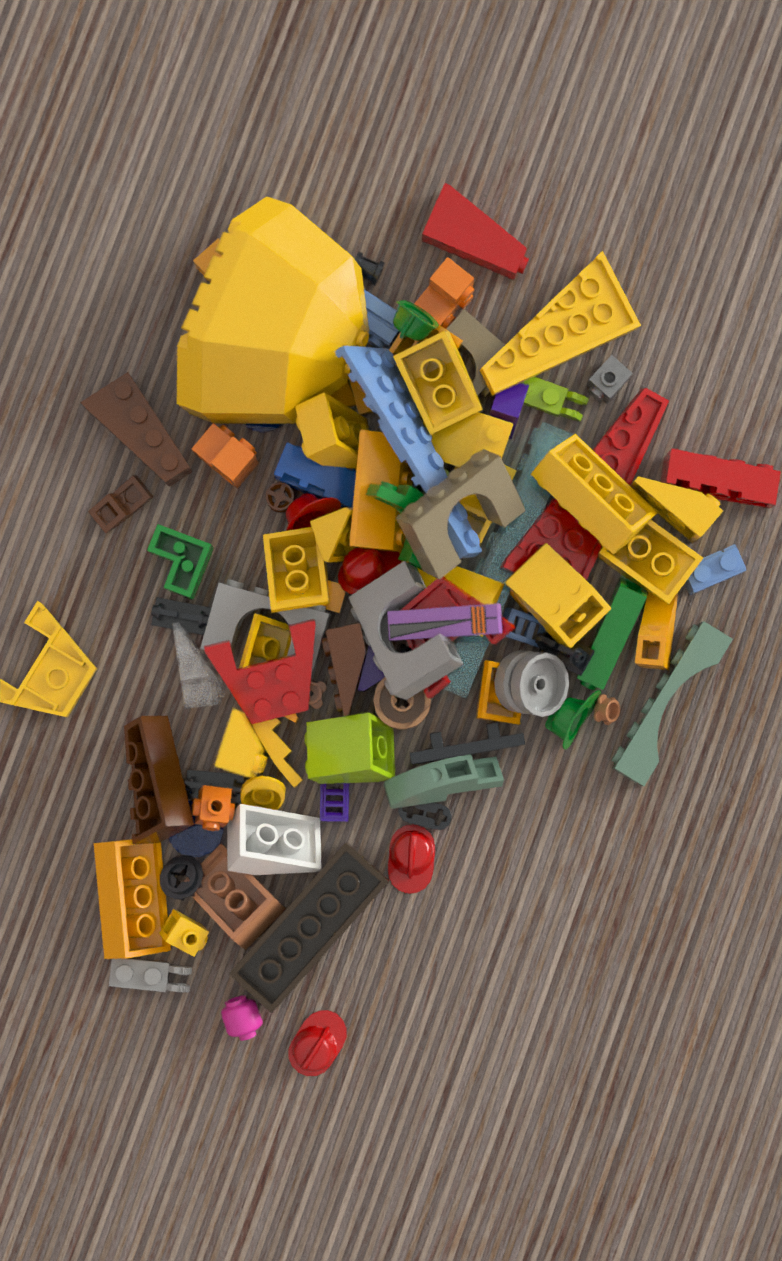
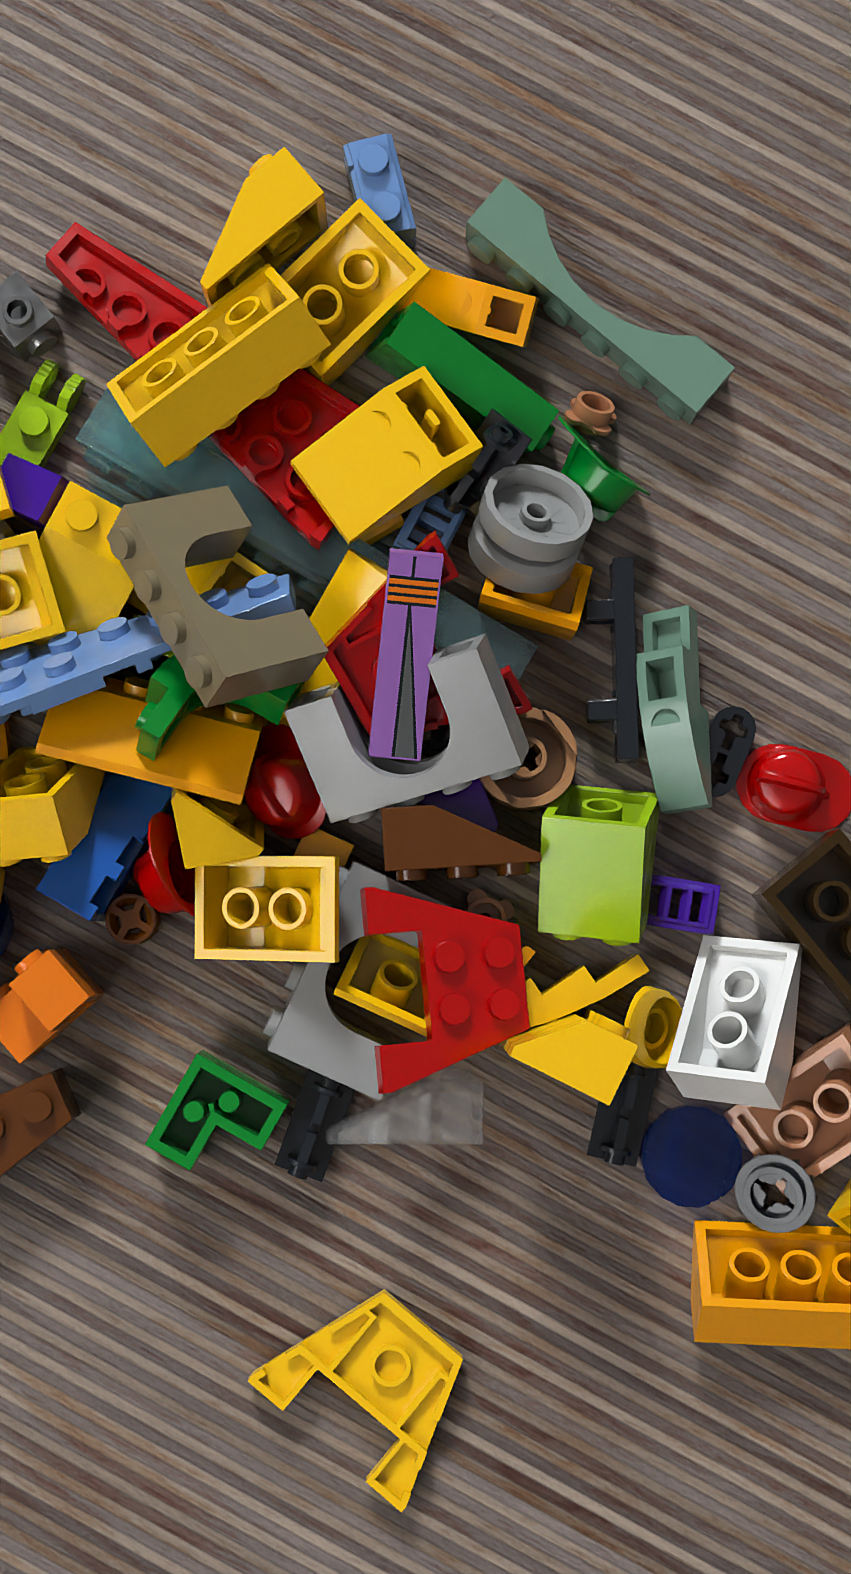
camera: 90 degrees left, 0 degrees up
(120, 504) = (98, 1204): reddish brown slope -> none
(156, 781) = (601, 1214): reddish brown wedge -> none
(220, 801) = (656, 1102): orange brick -> none
(722, 478) = (225, 145): red wedge -> none

